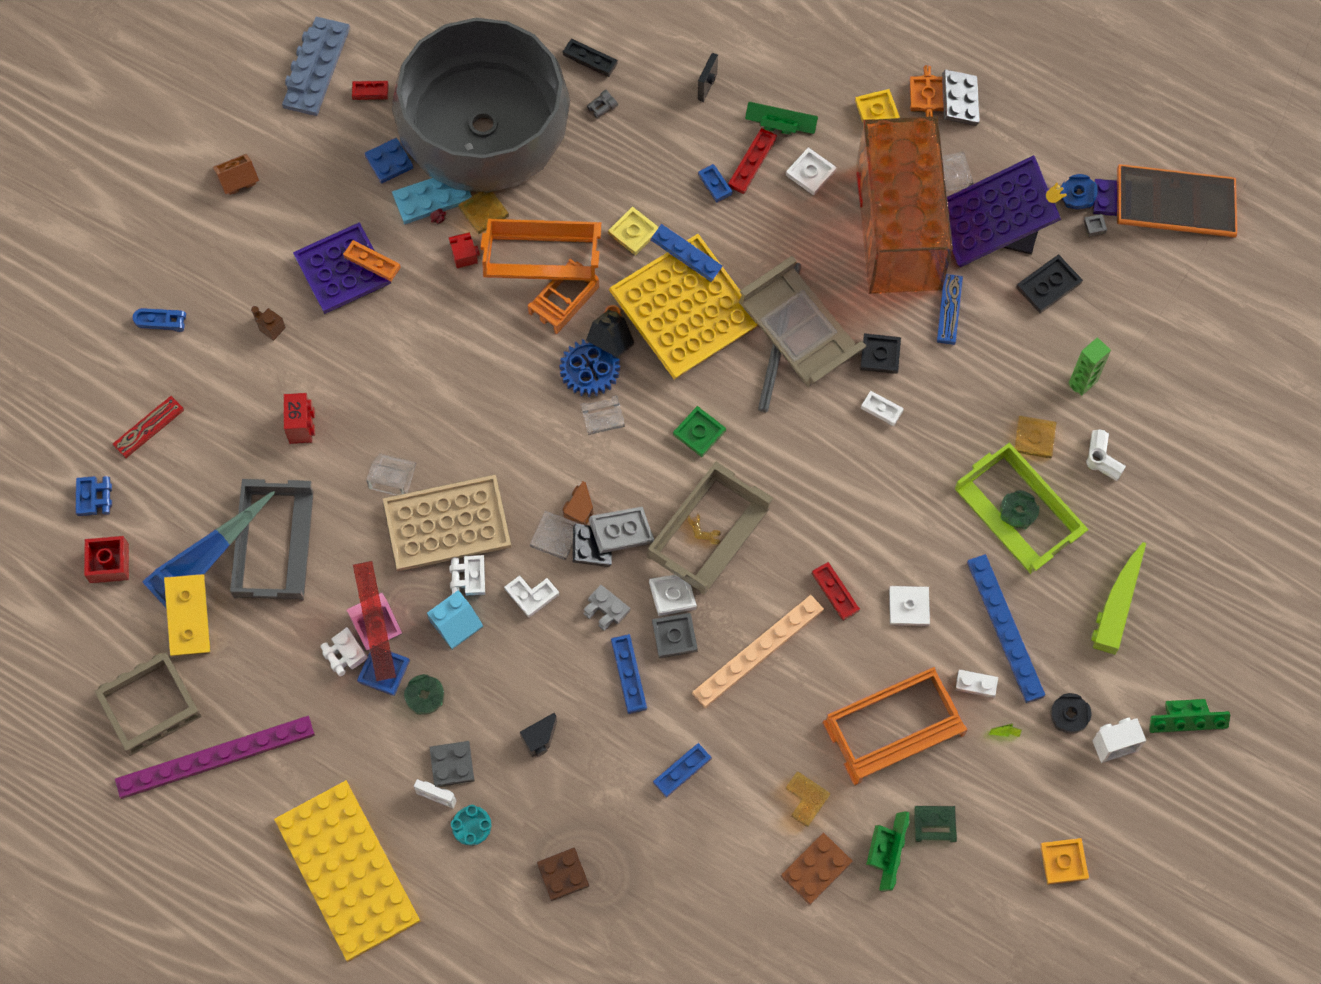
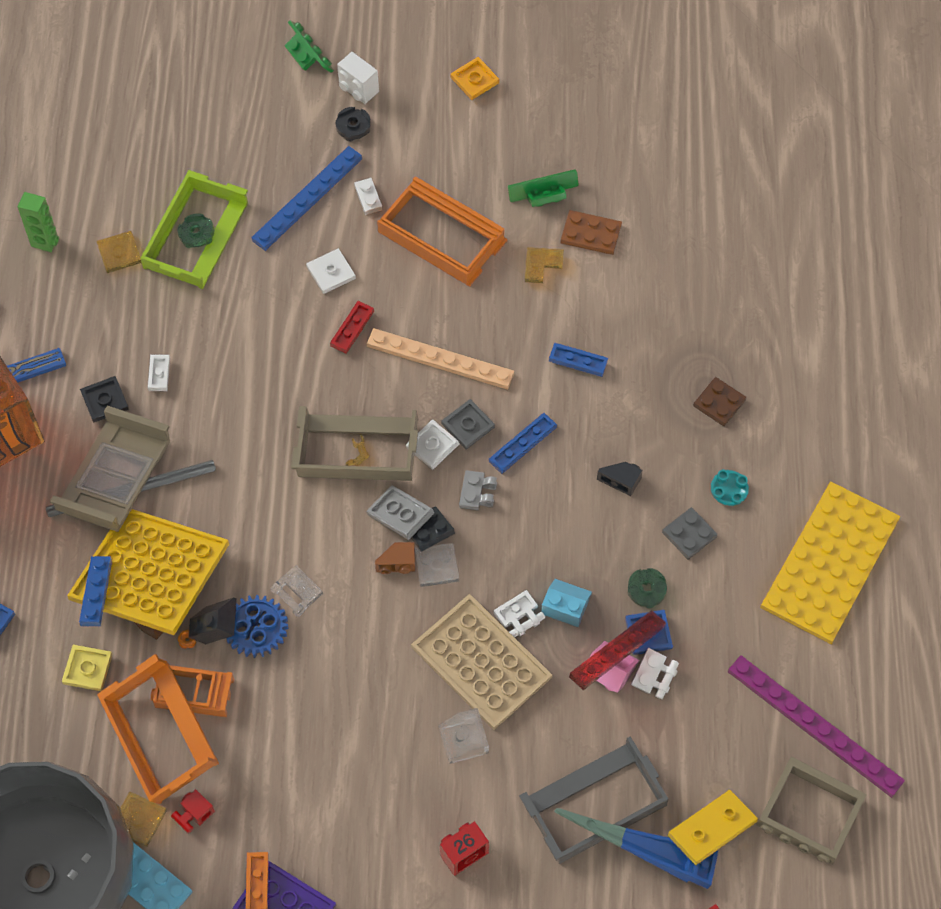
camera: 120 degrees left, 5 degrees down
(436, 794) = (724, 521): white plate -> none
(438, 216) = (168, 859): dark red plate -> none
(531, 599) = (507, 550): white plate -> none
(699, 431) = (266, 503): green plate -> none
(935, 818) = (496, 174): clear green plate -> none
(1005, 730) = (395, 160): clear neon green bar -> none
(1098, 449) = (107, 199): white piece -> none
(1116, 609) = (236, 130): lime slope -> none

